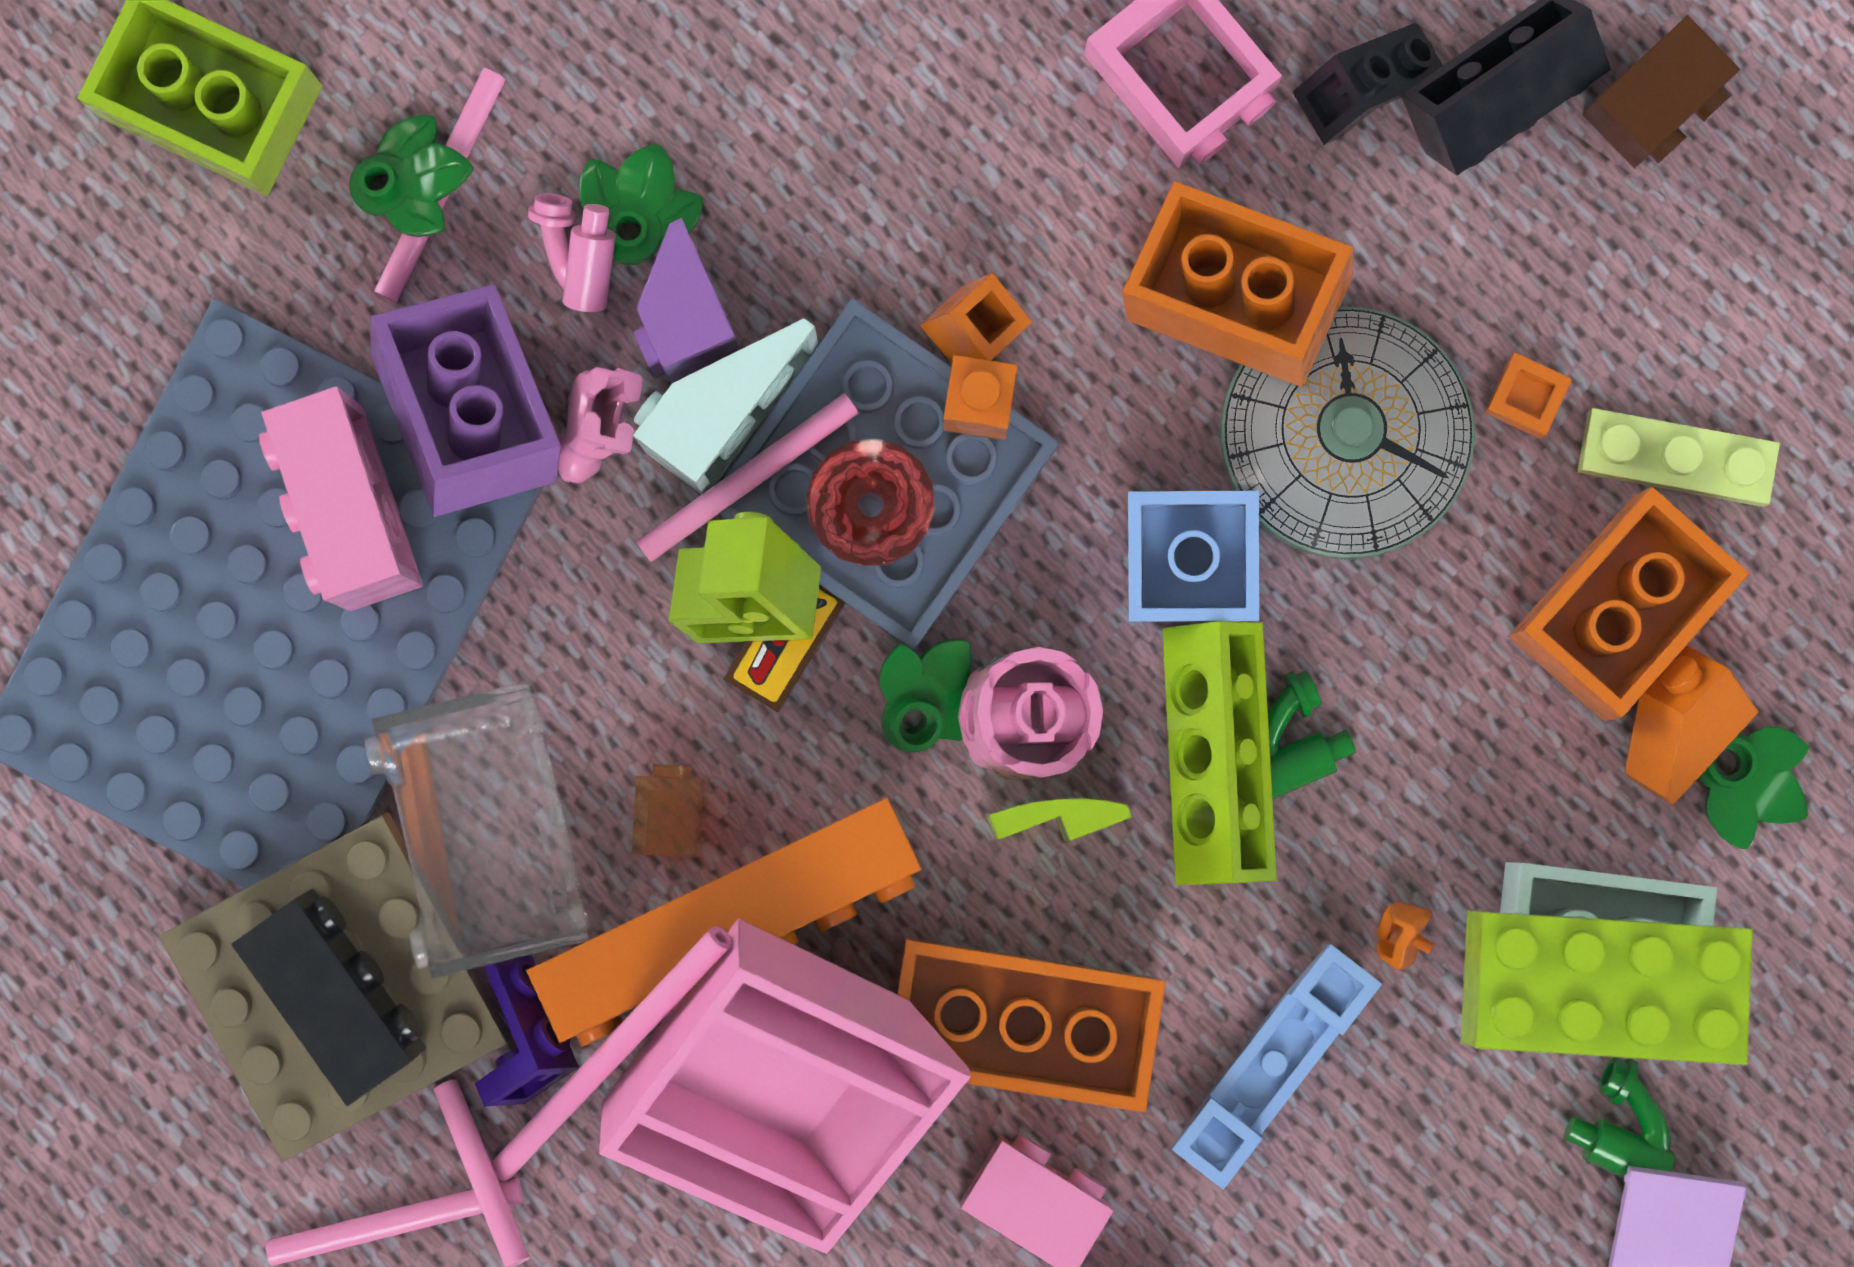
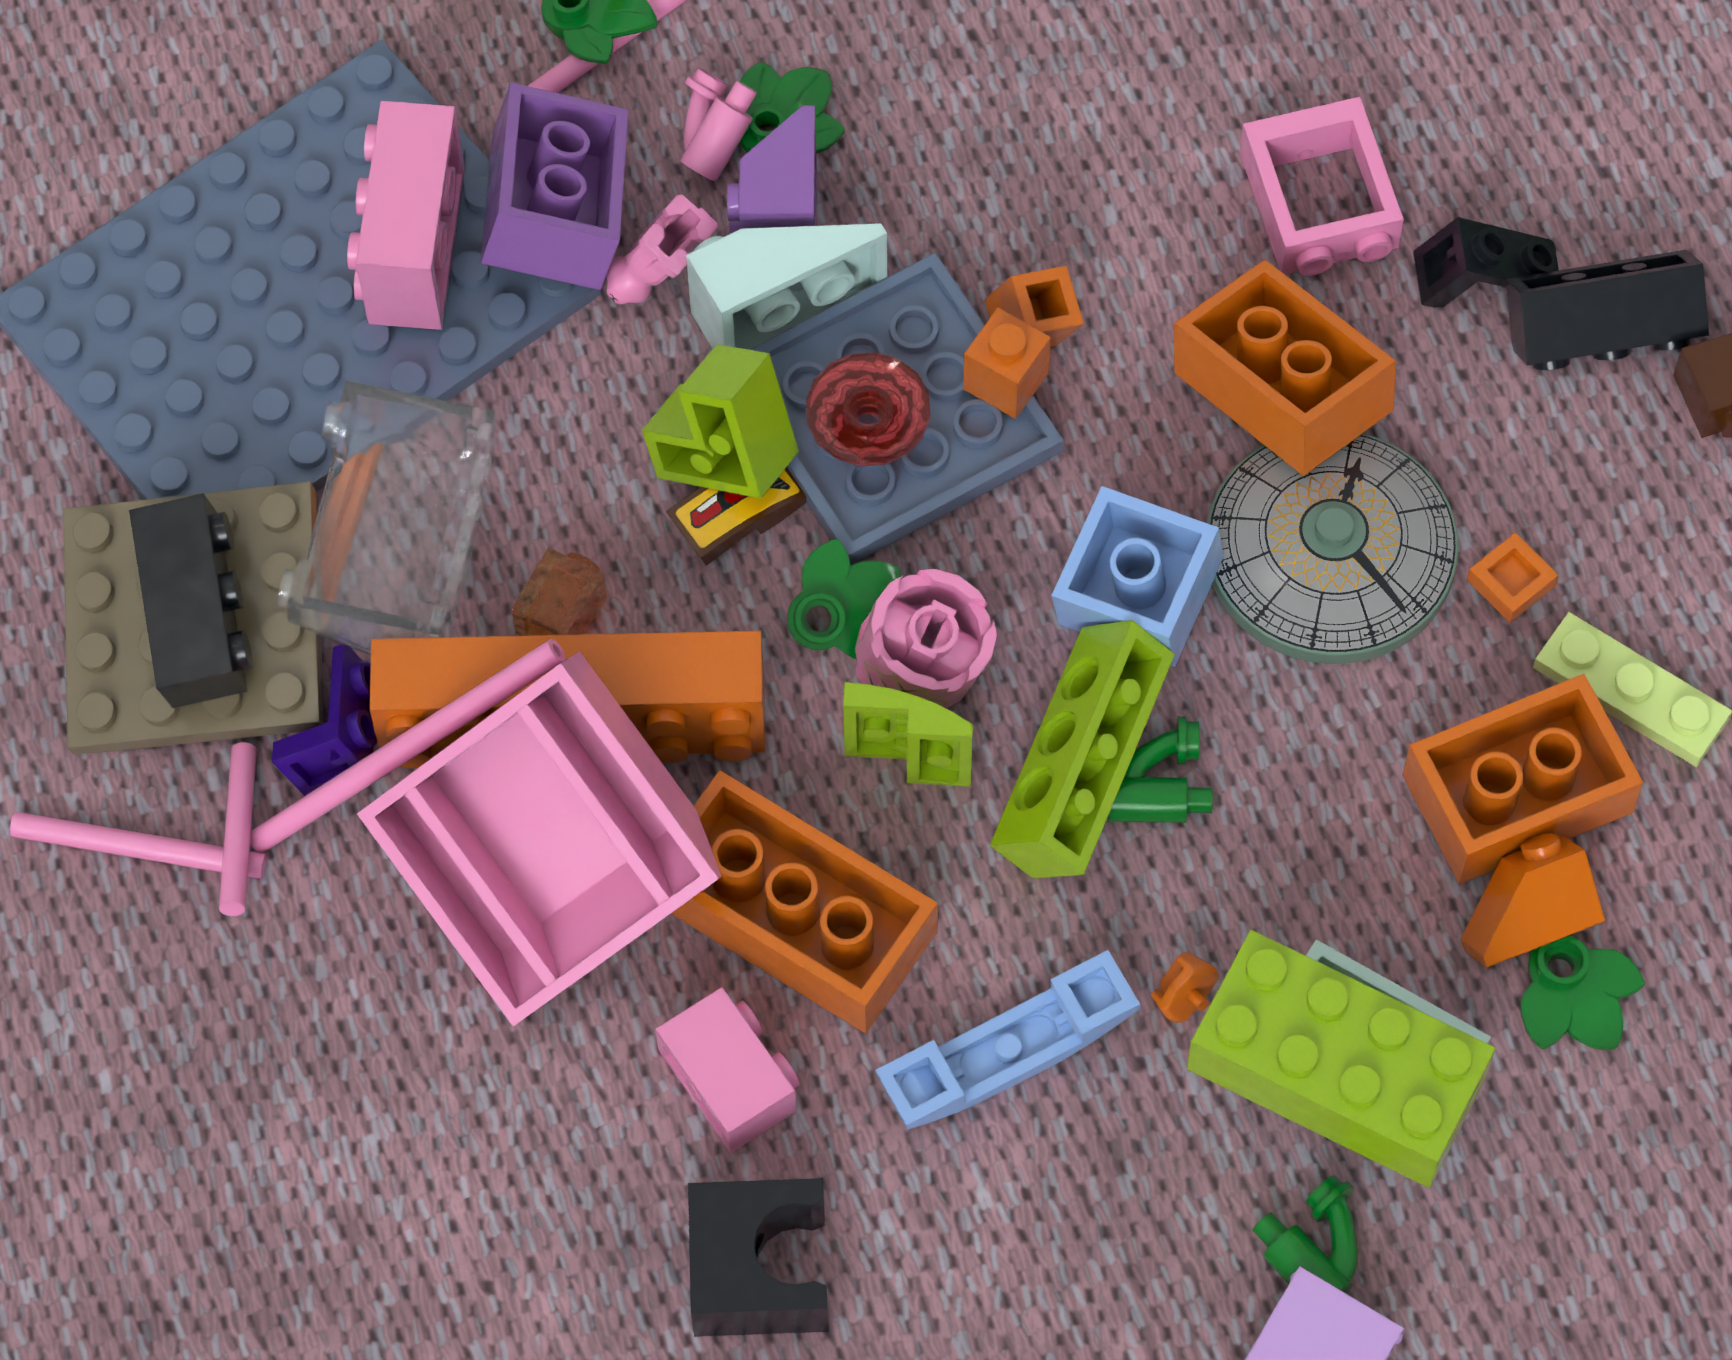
camera: 25 degrees right, 20 degrees down
(747, 477) = (783, 349): bright pink bar -> none

